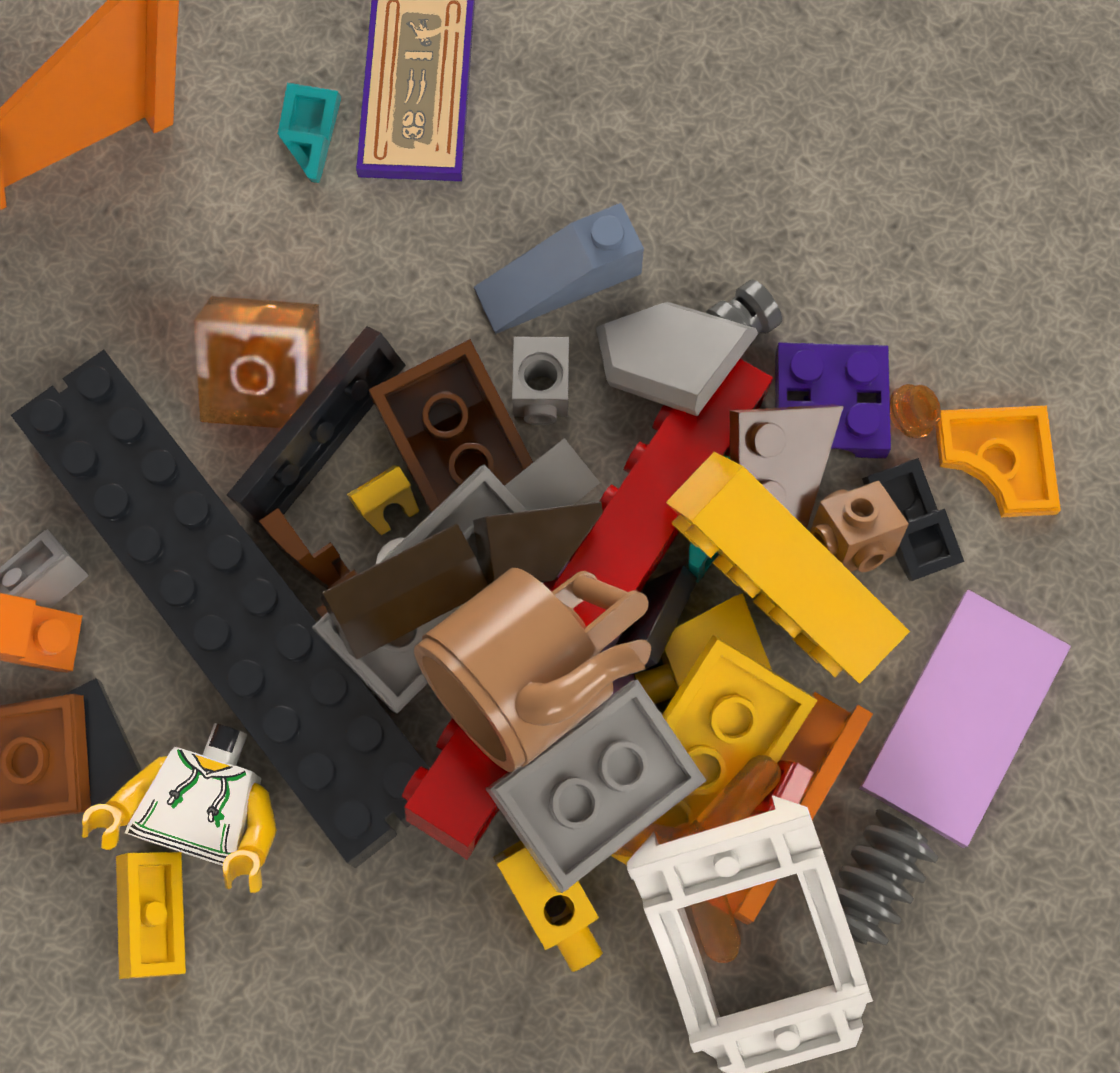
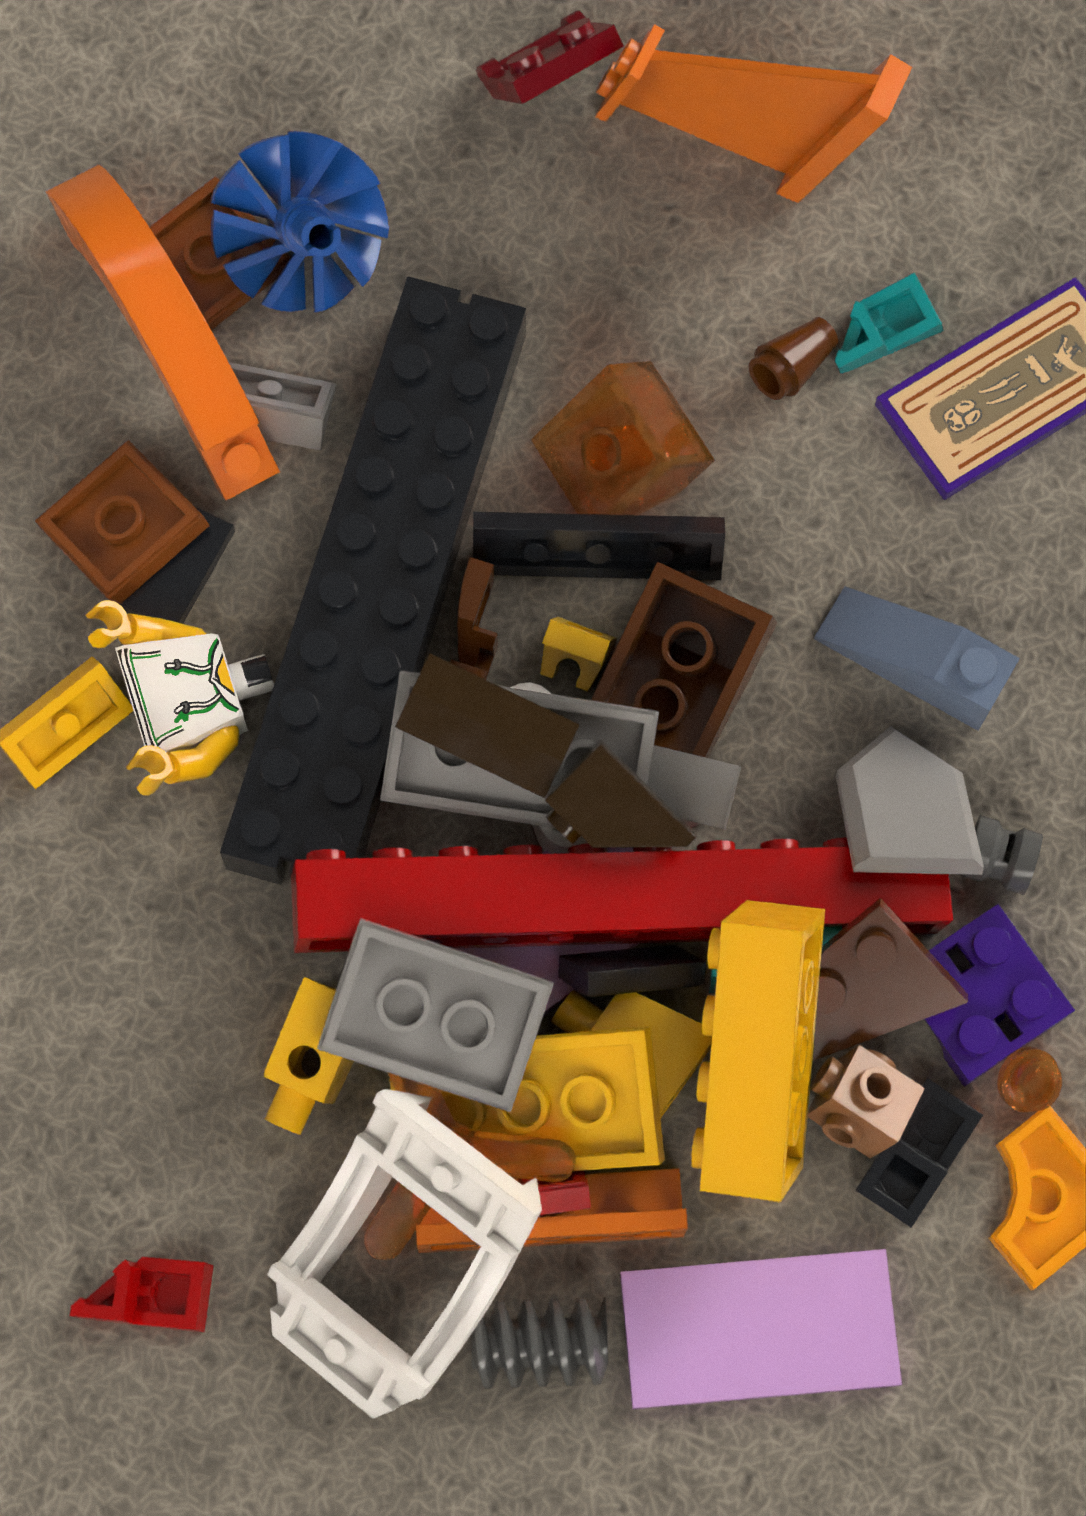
camera: 50 degrees right, 0 degrees up
(284, 204) = (792, 358): none -> reddish brown cone
(525, 666) = (490, 867): medium nougat piece -> none
(538, 358) = (807, 687): light grey brick -> none

